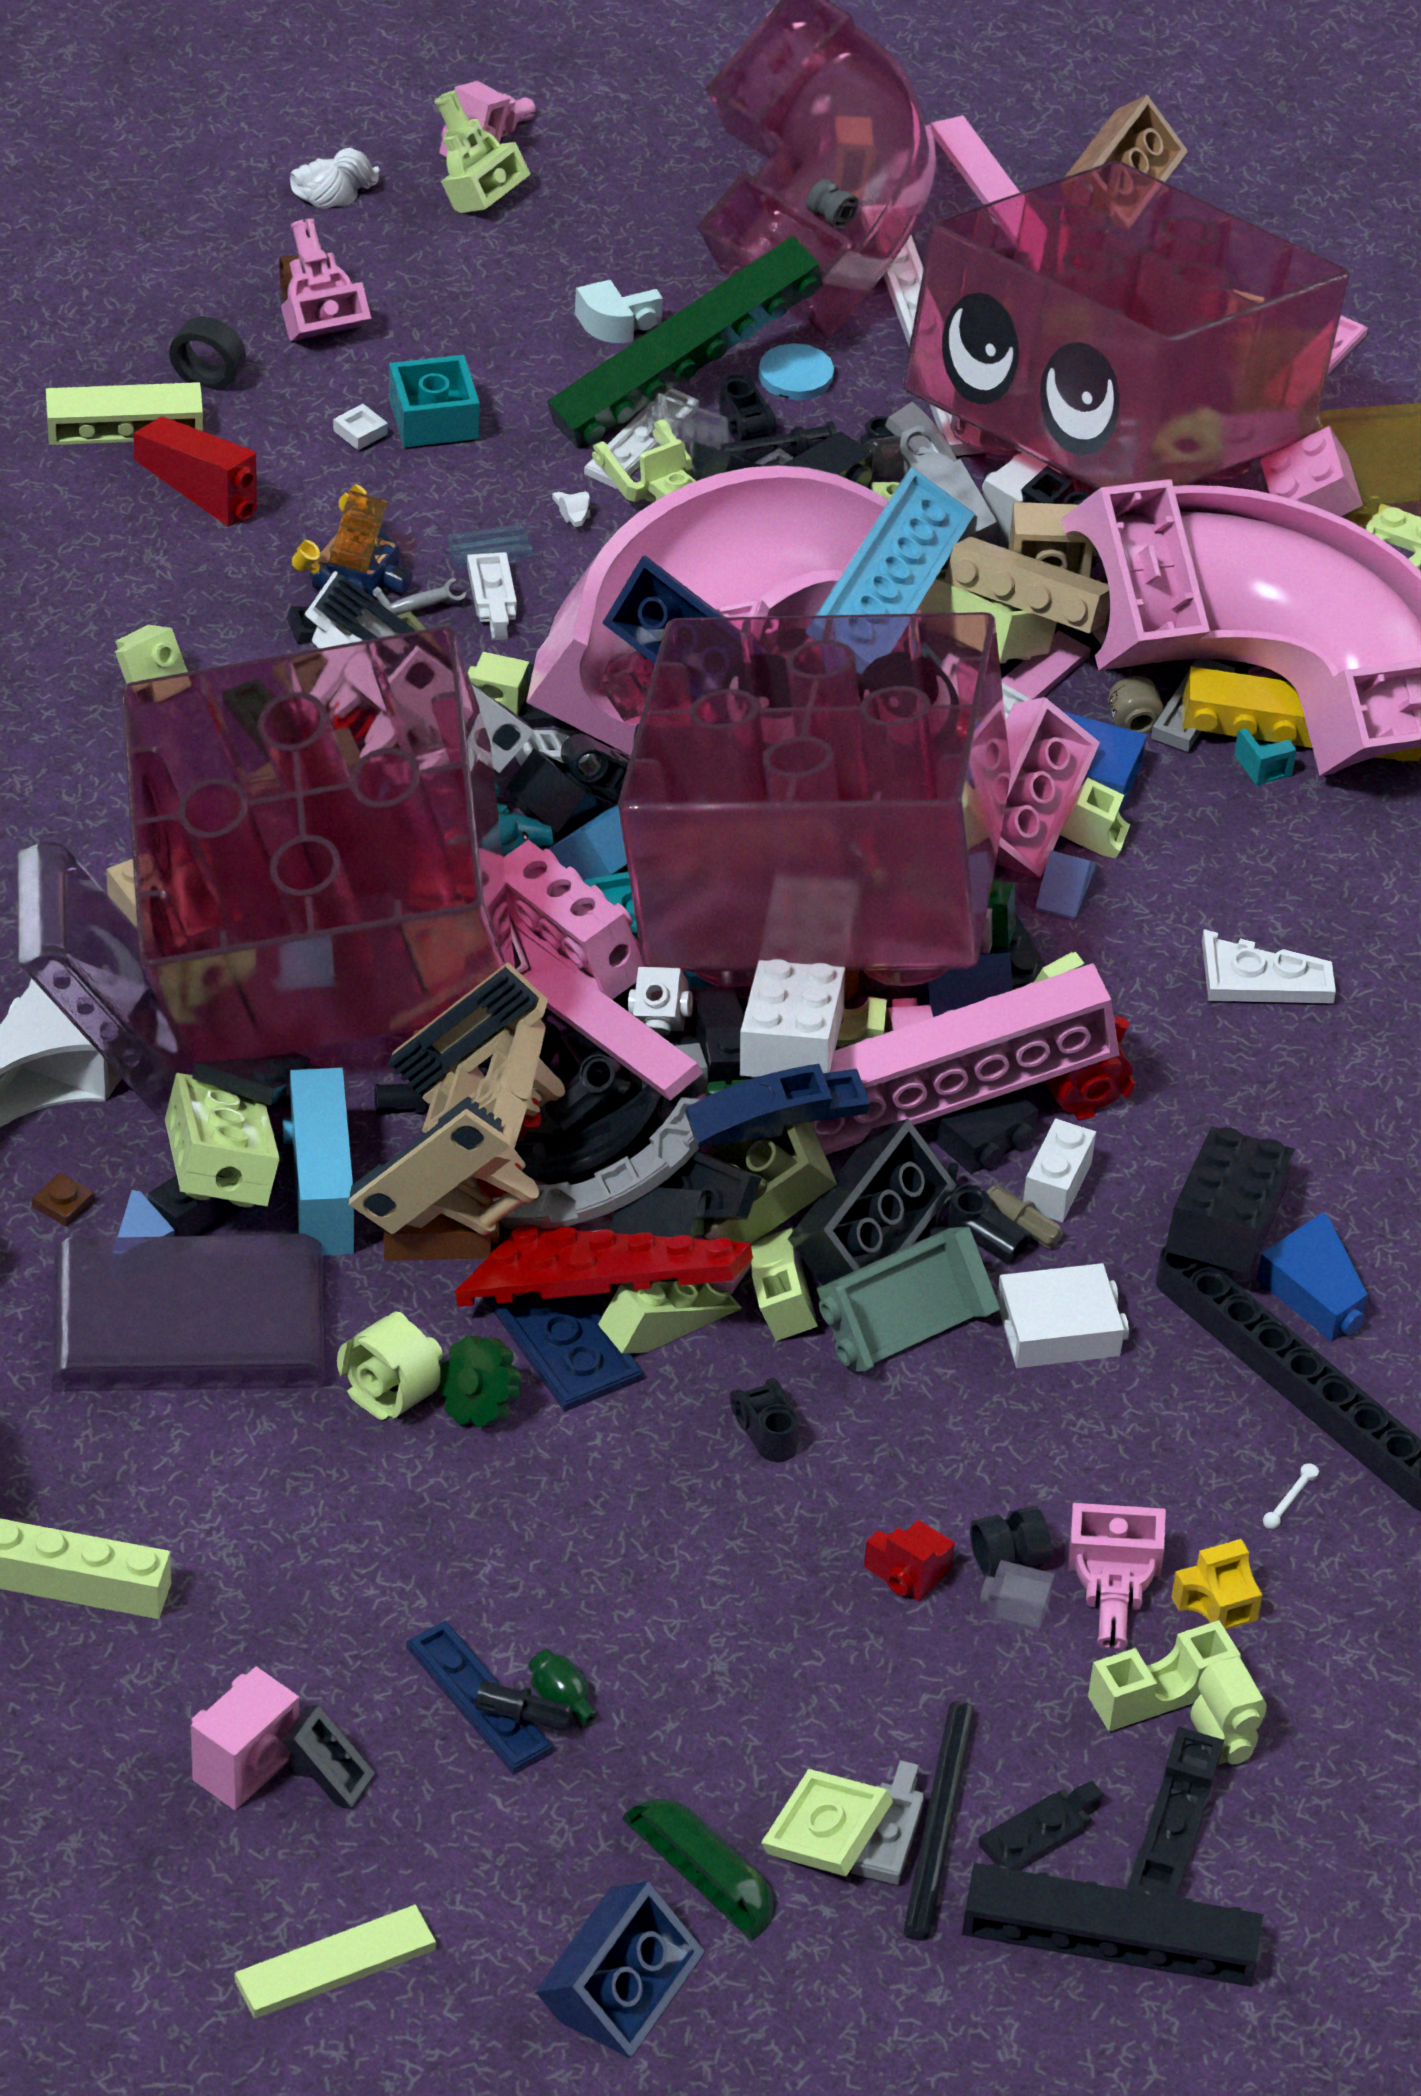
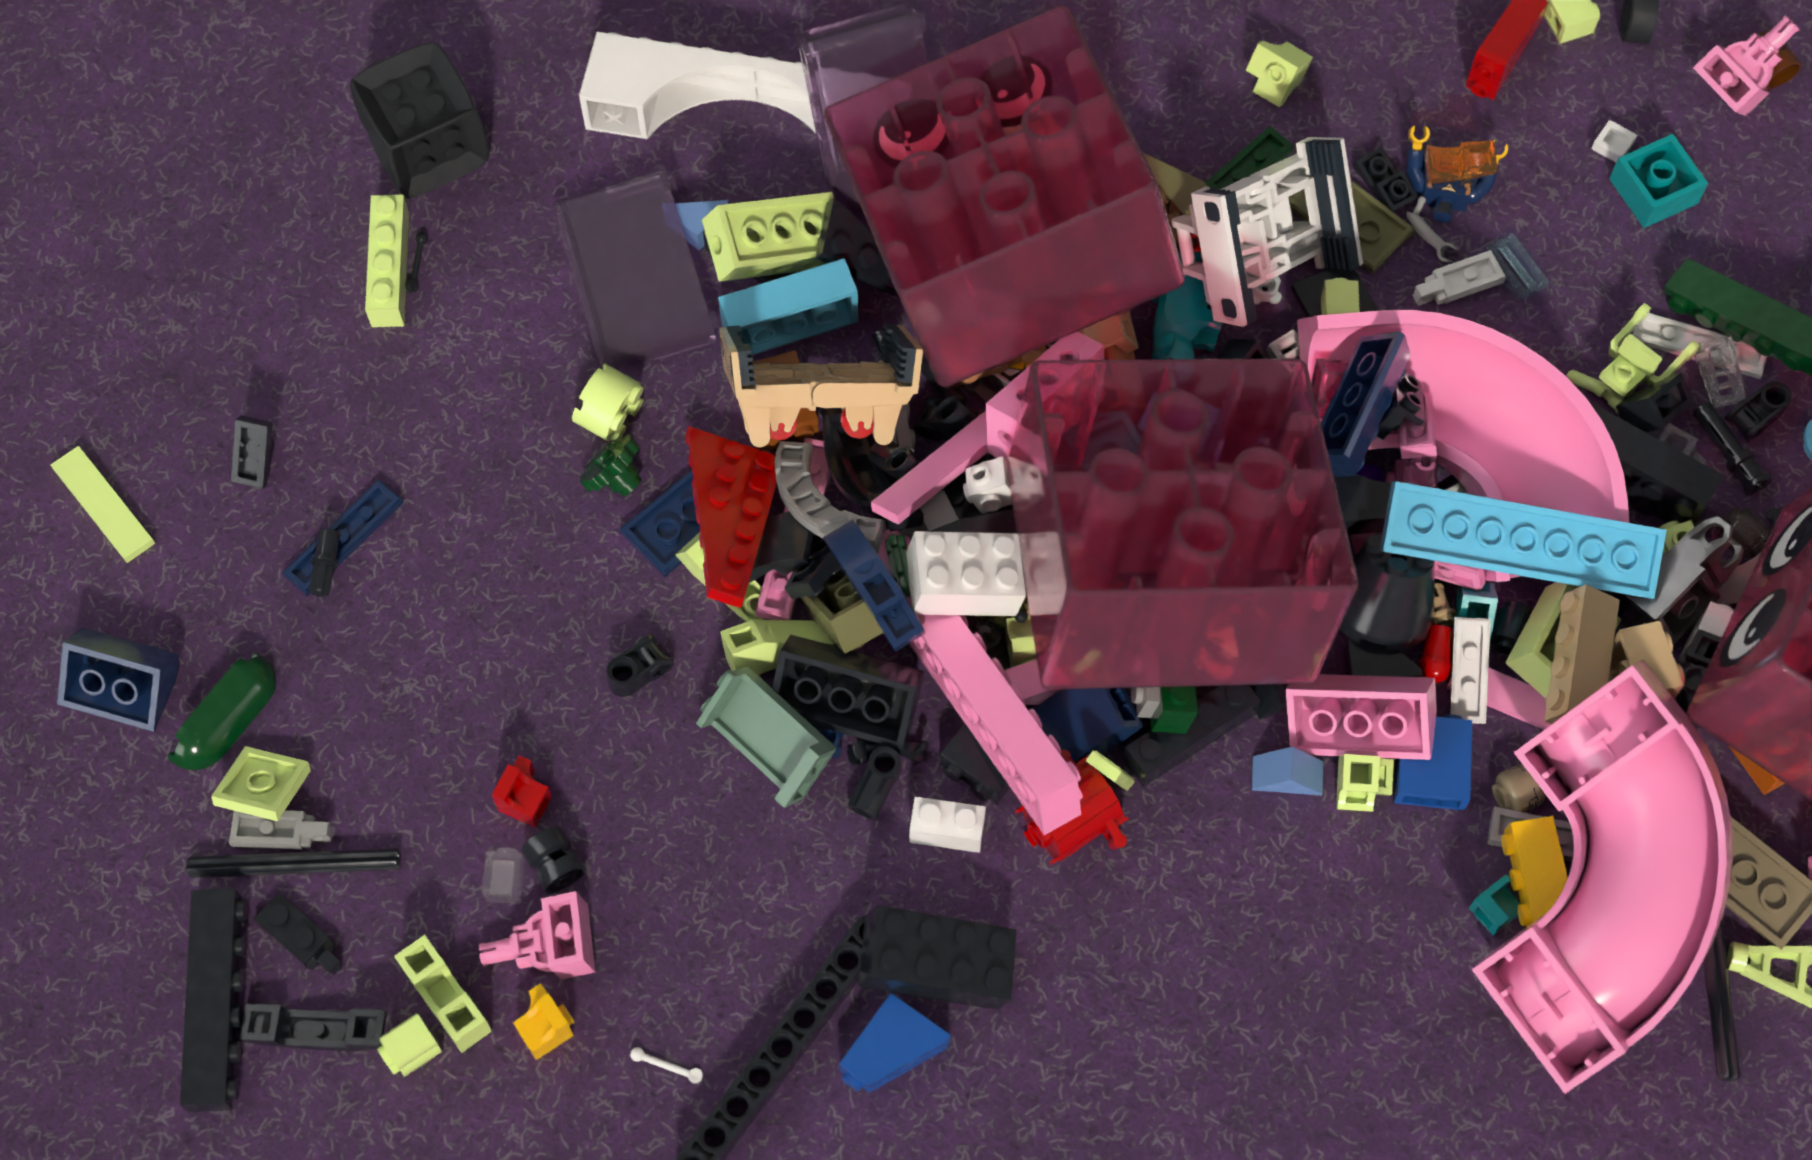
camera: 80 degrees right, 20 degrees up
(63, 1199) = (728, 167): reddish brown plate -> none
(241, 1737) = (251, 392): bright pink container -> none
(561, 1681) = (357, 586): dark green plant -> none
(573, 507) = (1585, 313): white piece -> none
(1025, 1214) = (898, 809): dark tan axle -> none
(1061, 1315) = (796, 856): white brick -> none
(1256, 975) = (1230, 943): white wing -> none

